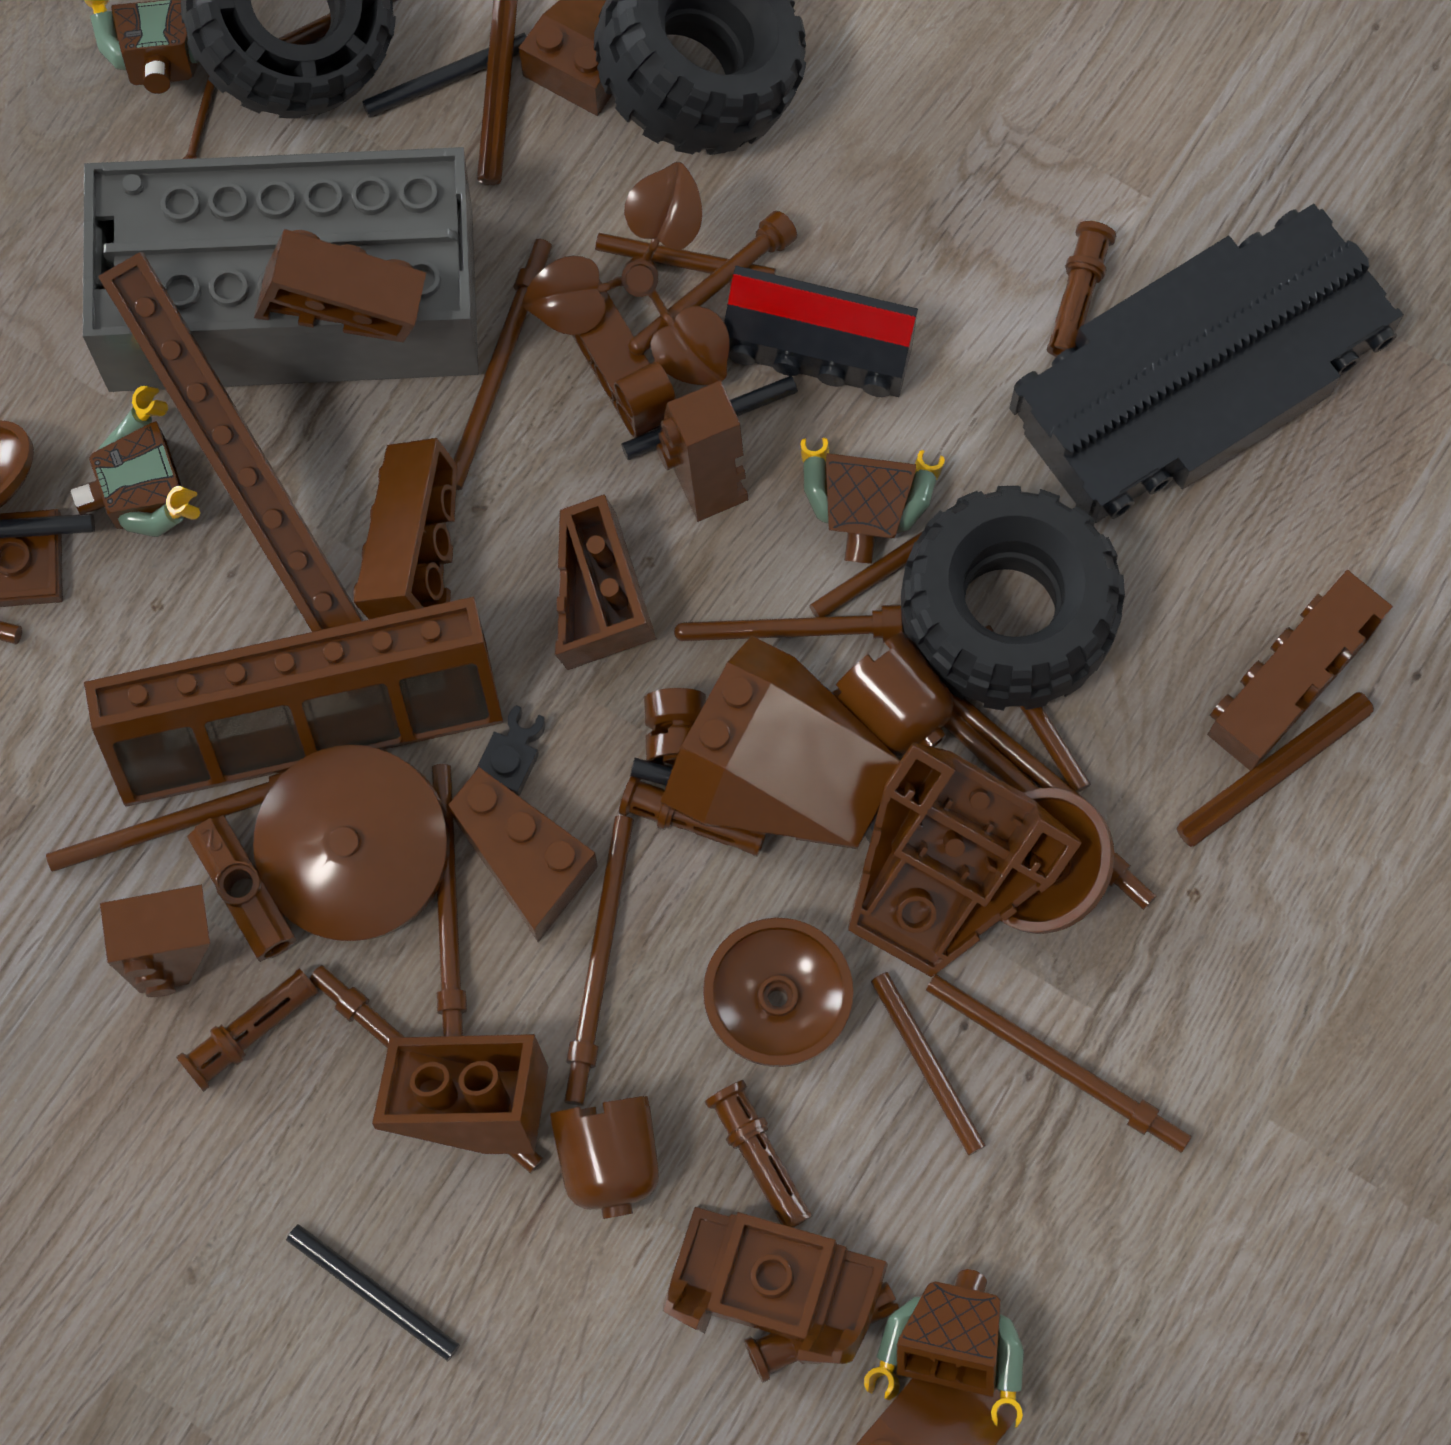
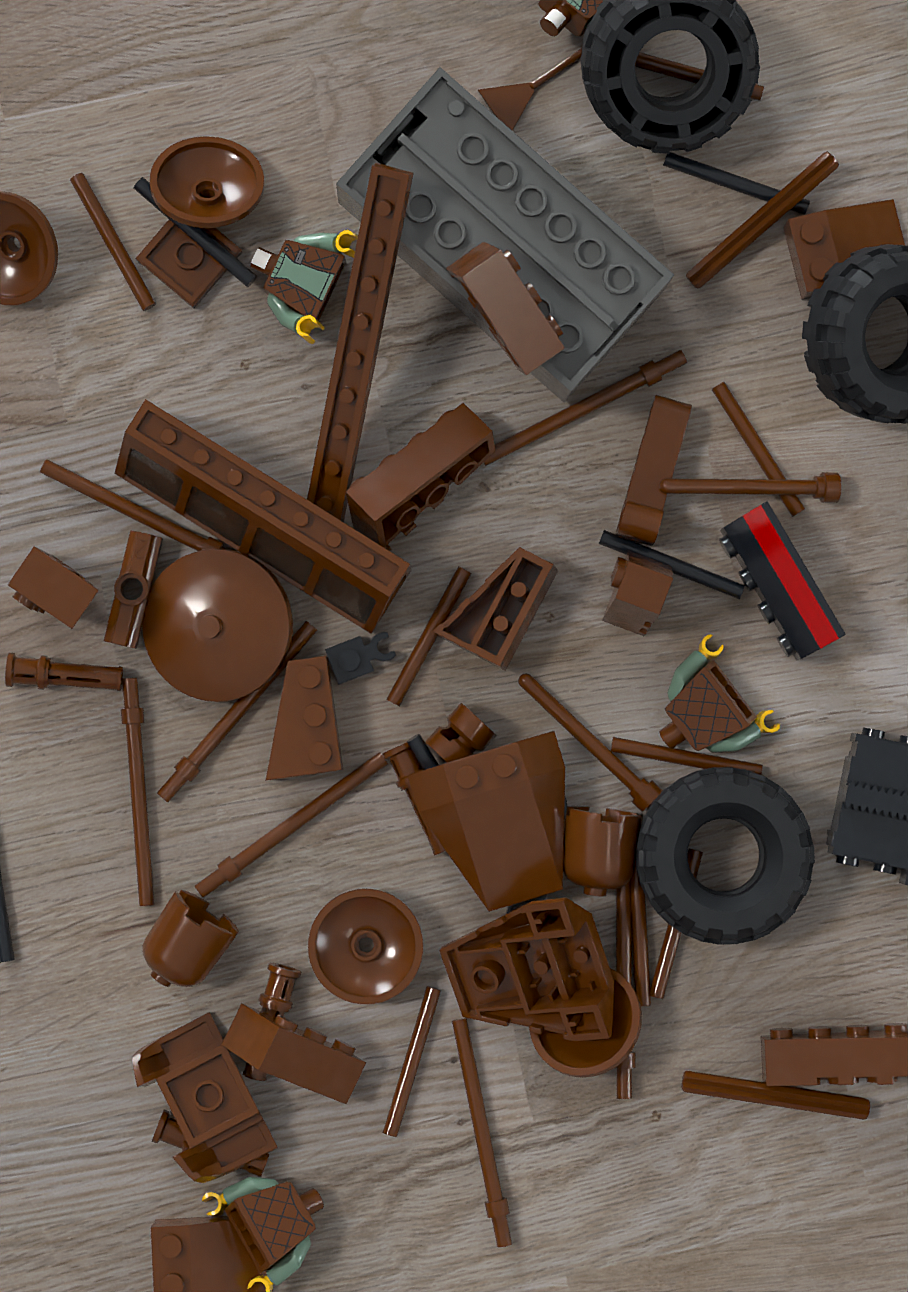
camera: 45 degrees right, 15 degrees up
(464, 1091) = (142, 830): reddish brown slope -> none
(558, 677) = (428, 637): none -> reddish brown bar
(569, 295) = (751, 423): reddish brown plant -> none
(811, 1151) = (294, 1054): none -> reddish brown wedge

